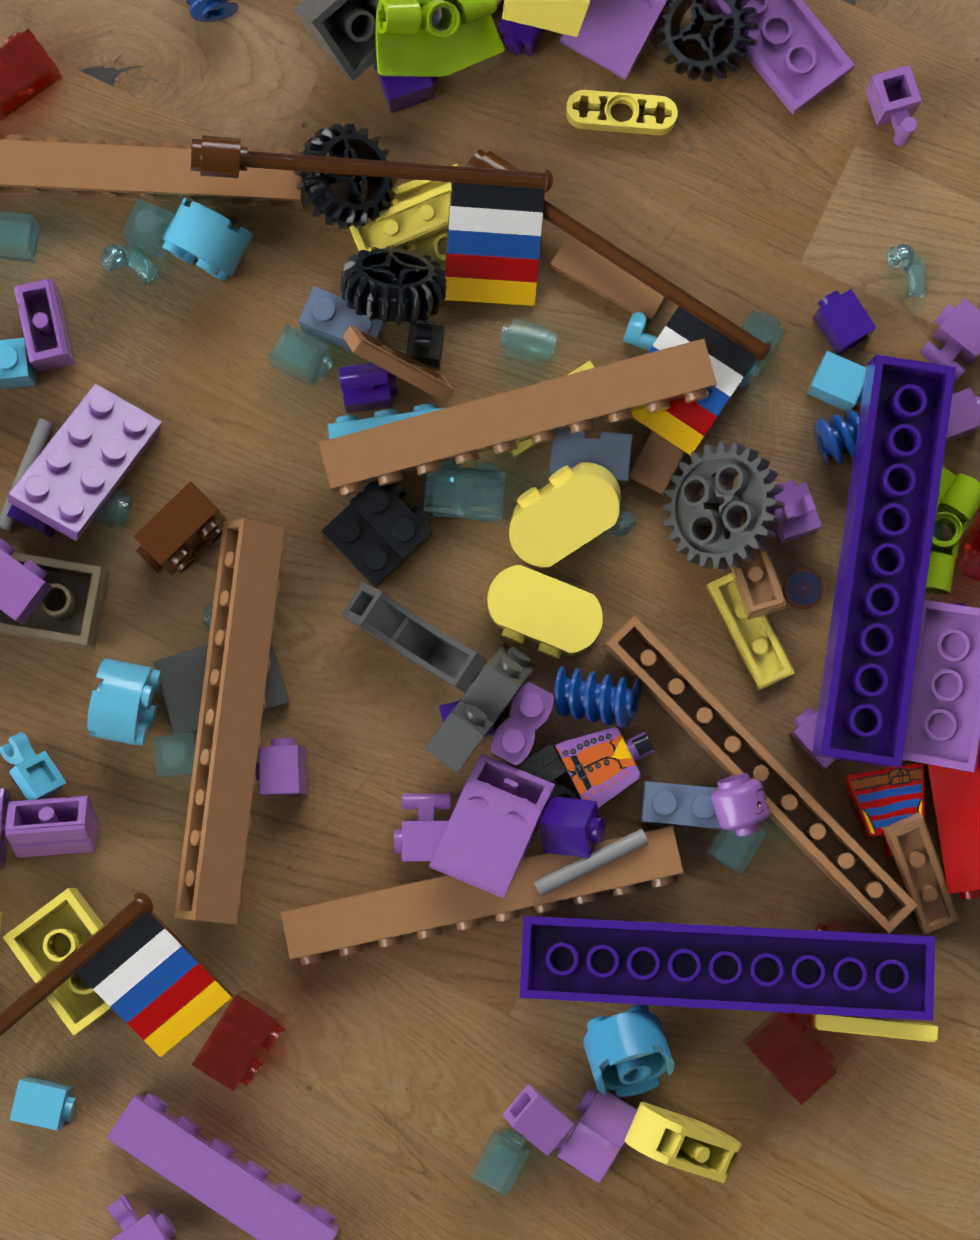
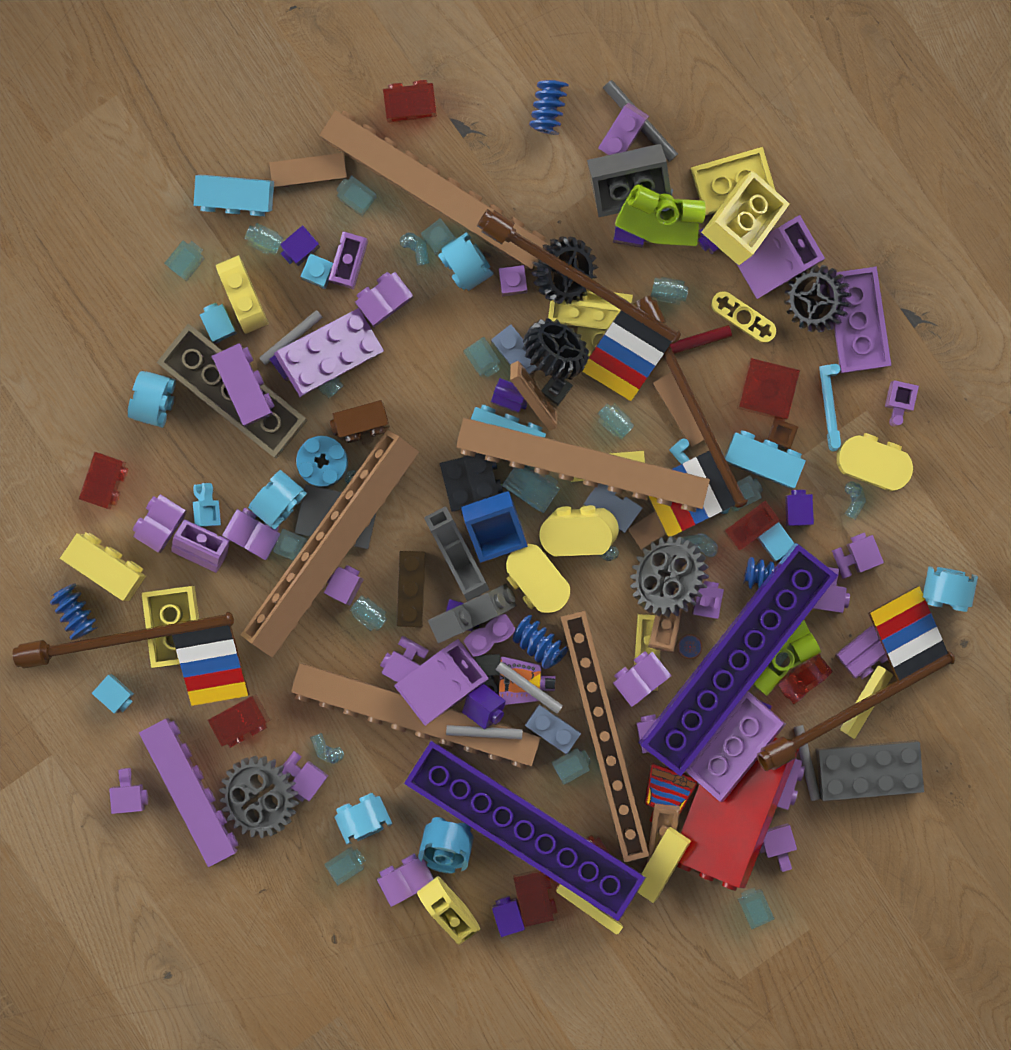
camera: 30 degrees right, 5 degrees up
(115, 770) = (251, 533): none -> medium lavender brick
(122, 352) = (383, 299): none -> medium lavender brick
(140, 603) = (314, 449): none -> dark azure brick
(284, 231) = (513, 280): none -> medium lavender brick
(338, 789) = (368, 613): none -> clear light blue brick
(359, 1149) = (272, 816): none -> dark grey gear
(378, 722) = (411, 589): none -> dark brown brick
(381, 1070) = (307, 779): none -> medium lavender brick
(385, 1017) = (325, 752): none -> clear light blue arm
(445, 571) = (494, 526): none -> blue piece
(489, 1081) = (362, 819): none -> medium azure brick
(502, 129) = (669, 290): none -> clear light blue brick
(538, 1120) = (377, 854): medium lavender brick -> none
(582, 171) = (701, 339): none -> dark red piece
(618, 765) = (529, 687): none -> light grey bar
(710, 185) = (768, 389): none -> clear red brick
(740, 804) = (583, 747): medium lavender head -> none
(745, 436) = (704, 543): none -> clear light blue arm
(760, 281) = (765, 459): none -> medium azure brick
(762, 237) = (782, 433): none -> reddish brown tile
(764, 666) = (641, 678): none -> medium lavender brick
(769, 1103) = (507, 916): none -> dark purple brick
(793, 377) = (751, 525): none -> clear red brick
(835, 201) = (833, 435): none -> medium azure hinge
(908, 204) = (875, 462): none -> light yellow brick
(942, 903) = (663, 863): none -> light yellow tile

